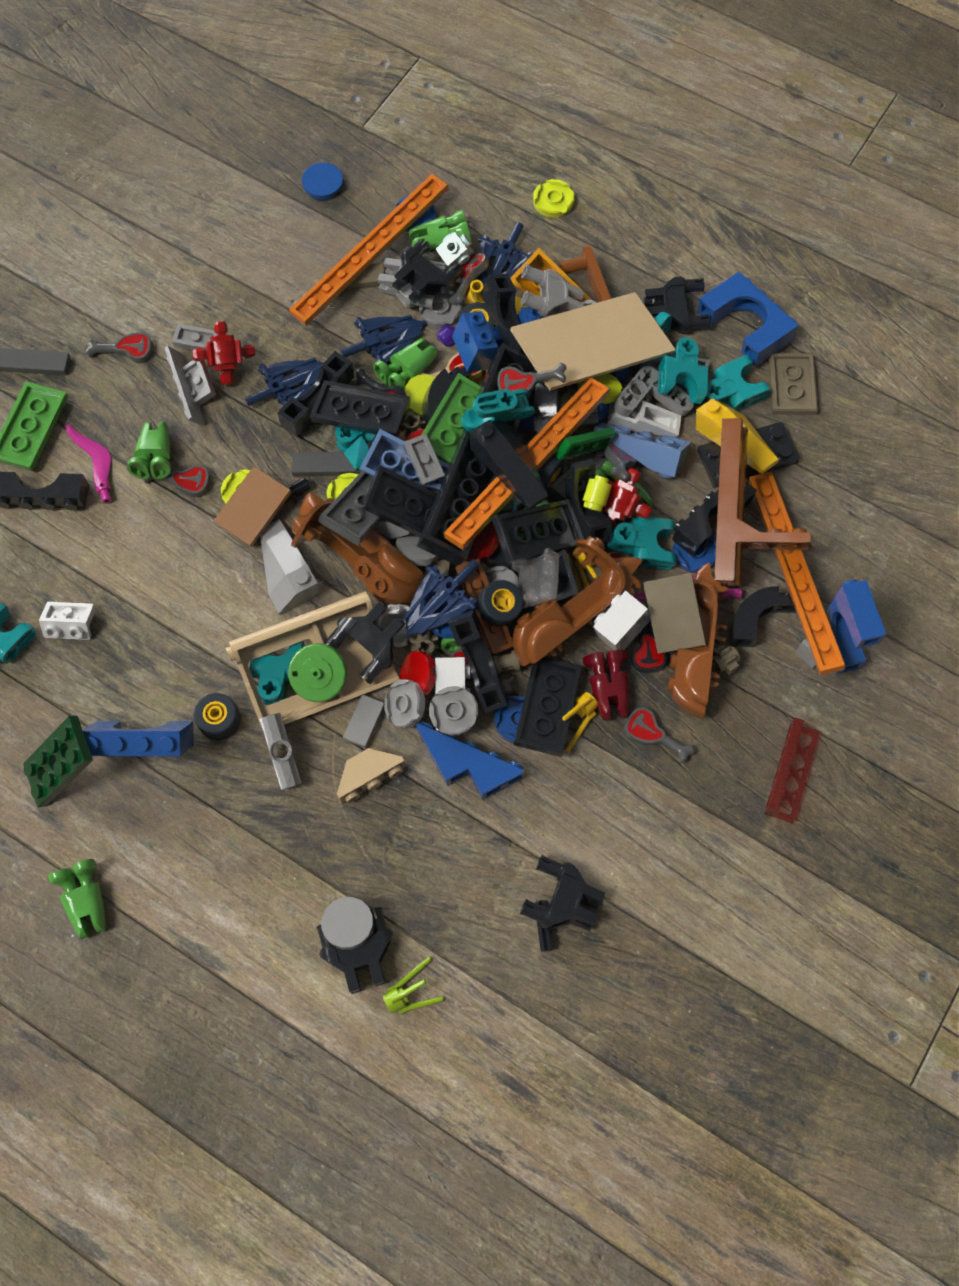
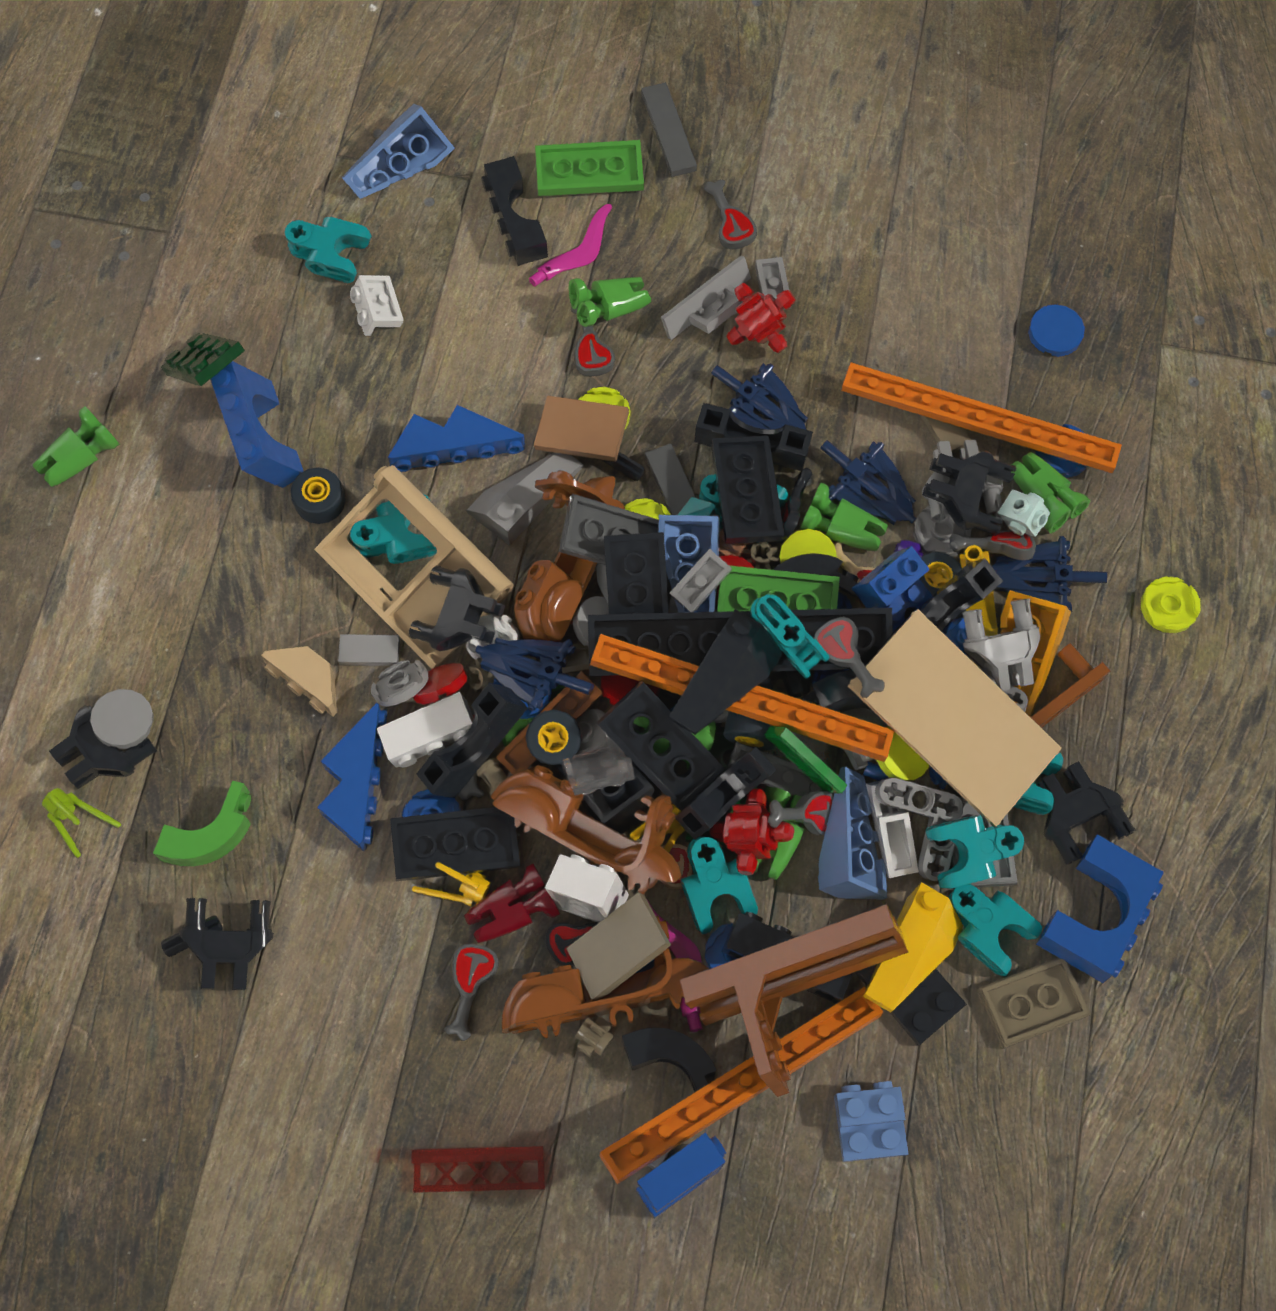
camera: 65 degrees right, 0 degrees up
(219, 595) = (462, 438): none -> blue slope
(276, 735) = (282, 587): light grey piece -> none
(317, 672) = (398, 574): bright green wheel -> none
(453, 711) = (403, 737): light grey tile -> none
(475, 899) = (214, 840): none -> bright green arch
(597, 493) = (735, 795): neon yellow brick -> none
(840, 508) = (871, 1122): none -> medium blue plate

